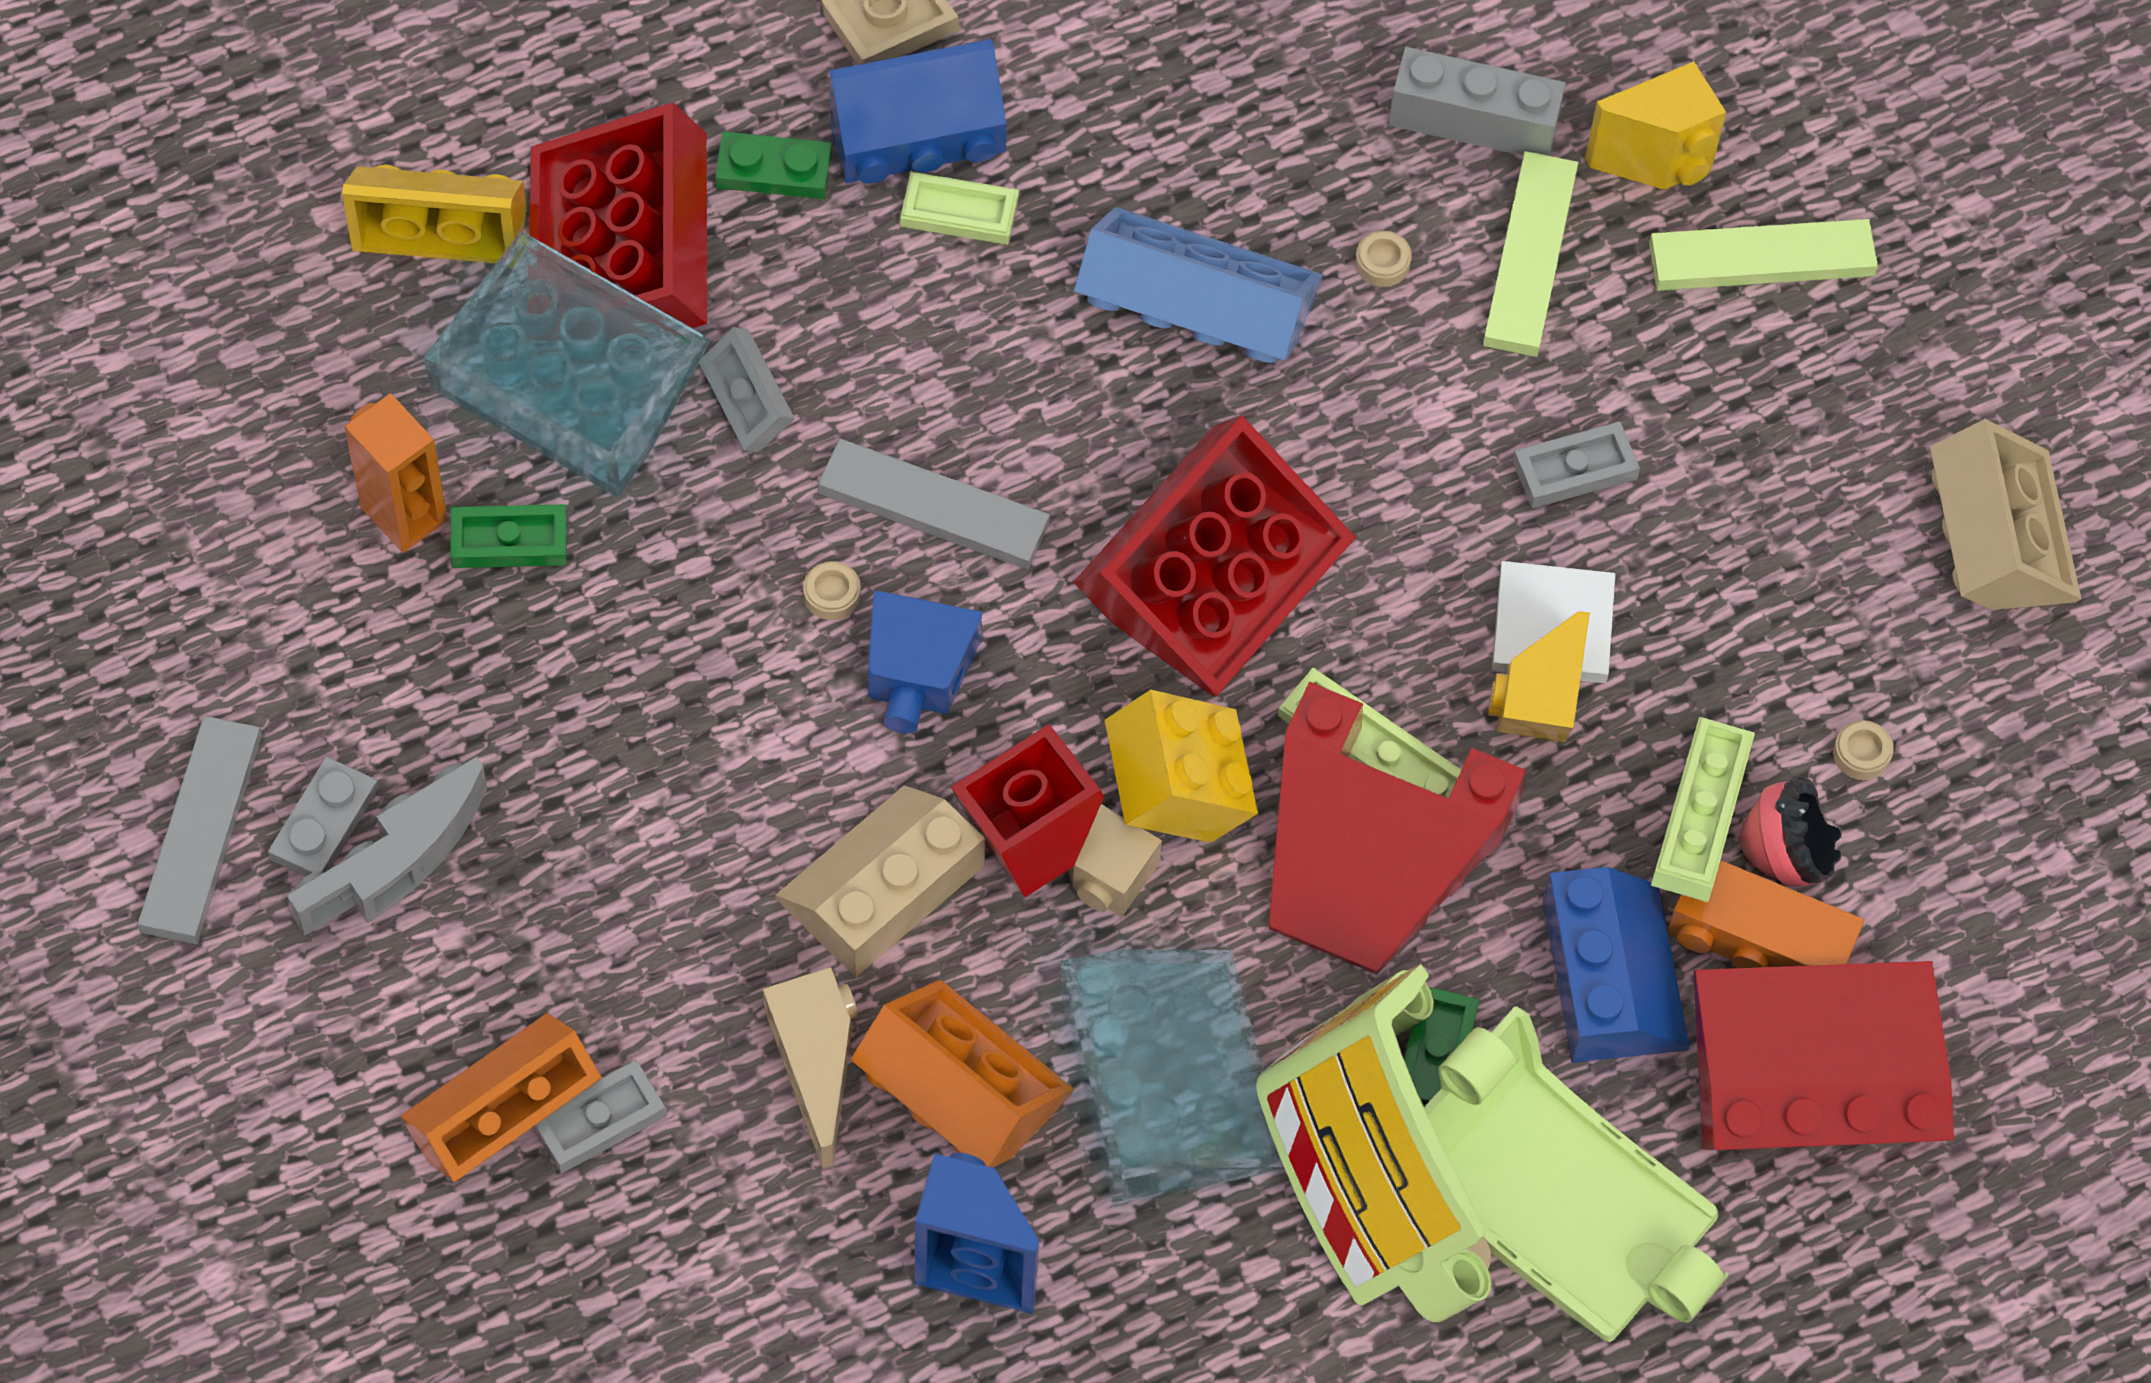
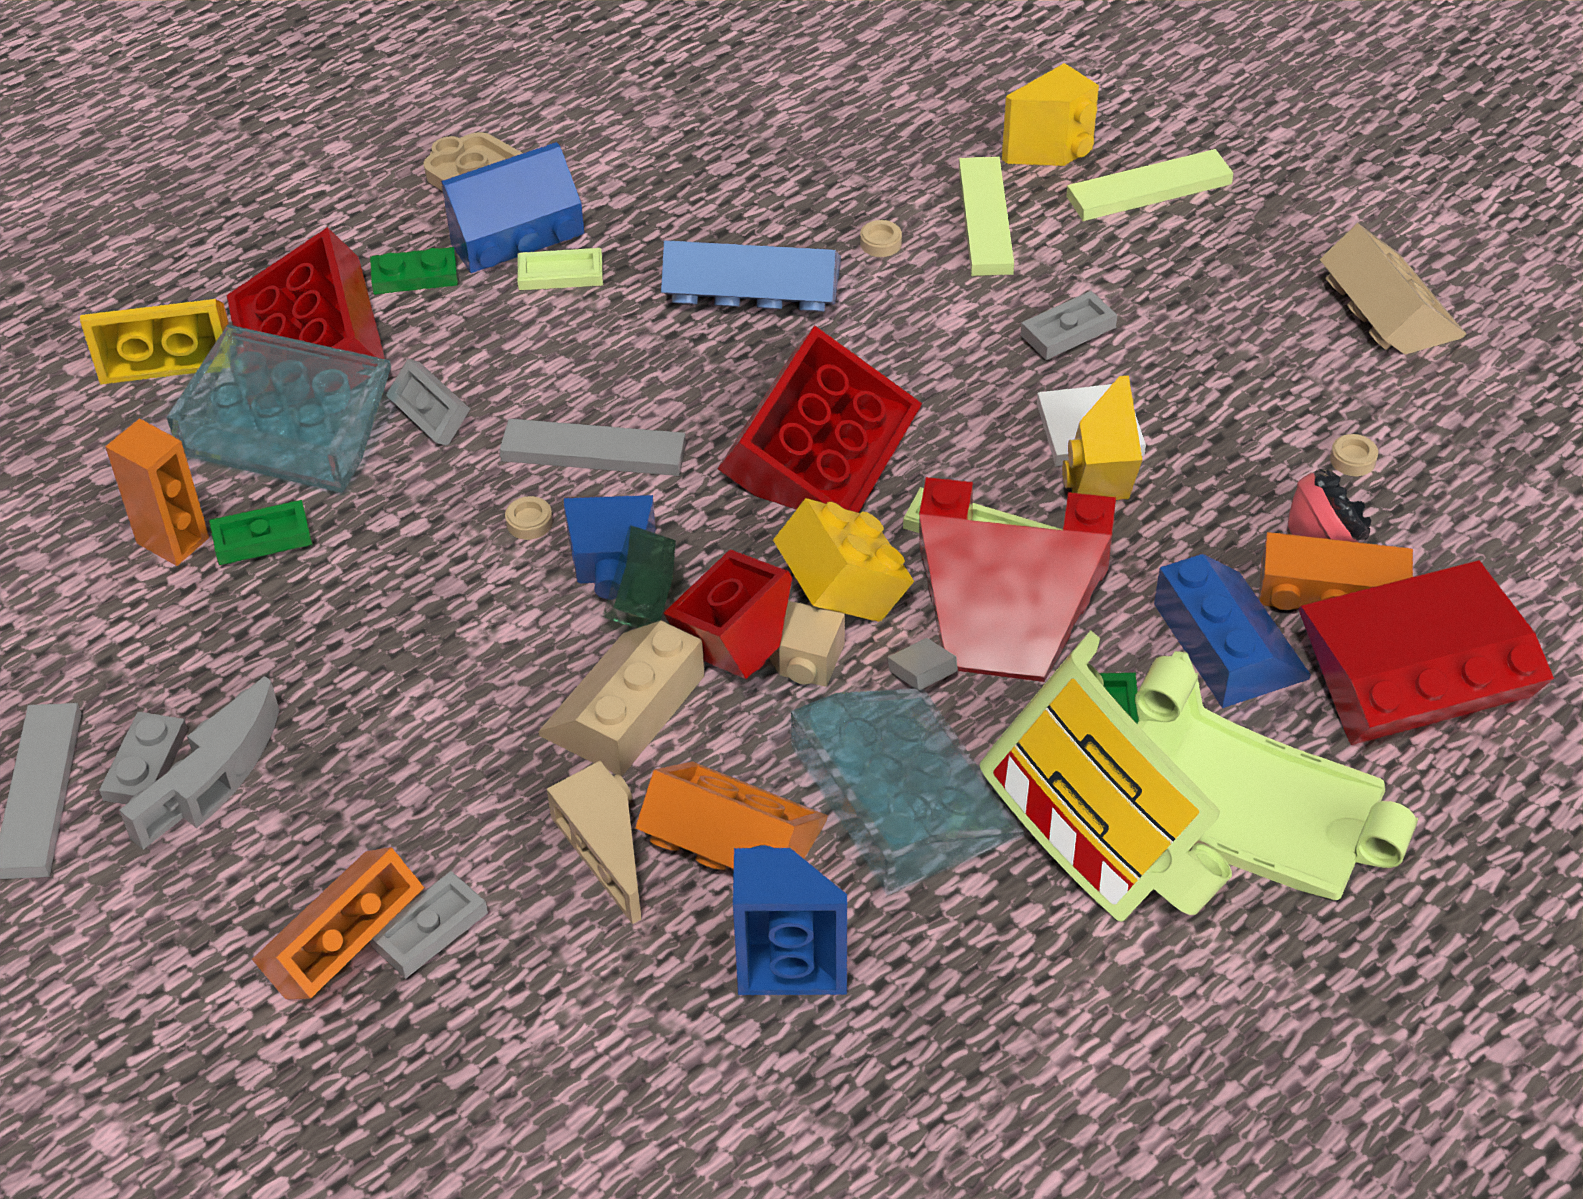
camera: 10 degrees left, 15 degrees down
(939, 729) = (641, 579): none -> clear green slope
(1239, 920) = (922, 664): none -> light grey tile
(1476, 103) = (915, 134): light grey brick -> none
(1703, 809) = (1257, 507): yellowish green tile -> none

